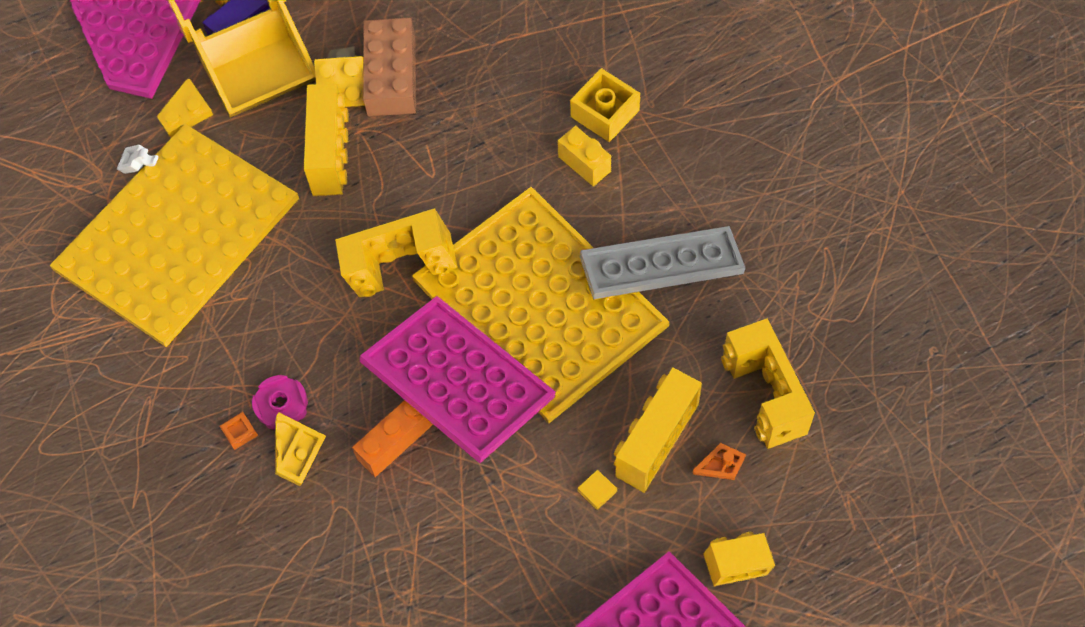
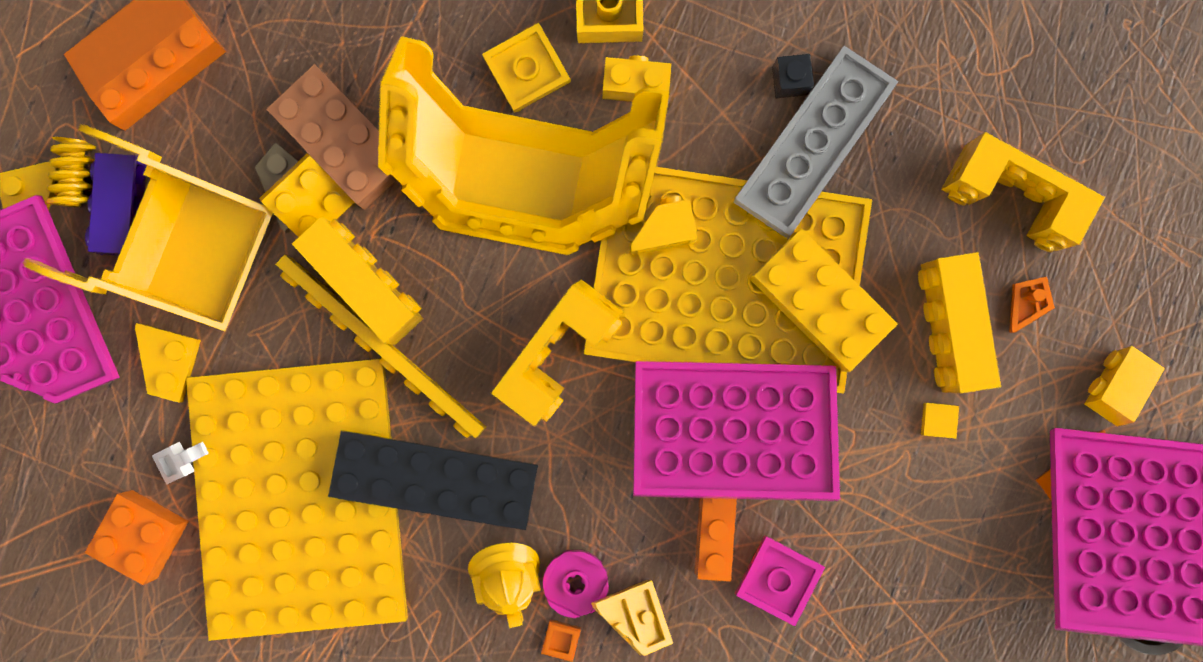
camera: 45 degrees left, 25 degrees up
(73, 180) = (136, 537): none -> orange brick
(243, 363) = (505, 579): none -> yellow helmet
(259, 277) = (432, 480): none -> black plate
(303, 195) = (391, 357): none -> yellow plate
(403, 502) = (779, 580): none -> dark pink plate
(457, 143) = (512, 173): none -> yellow windscreen
(524, 238) = (666, 227): none -> yellow slope
(528, 107) = (526, 67): none -> yellow plate
(581, 348) = (823, 301): none -> yellow brick
(681, 217) = (792, 76): none -> black brick

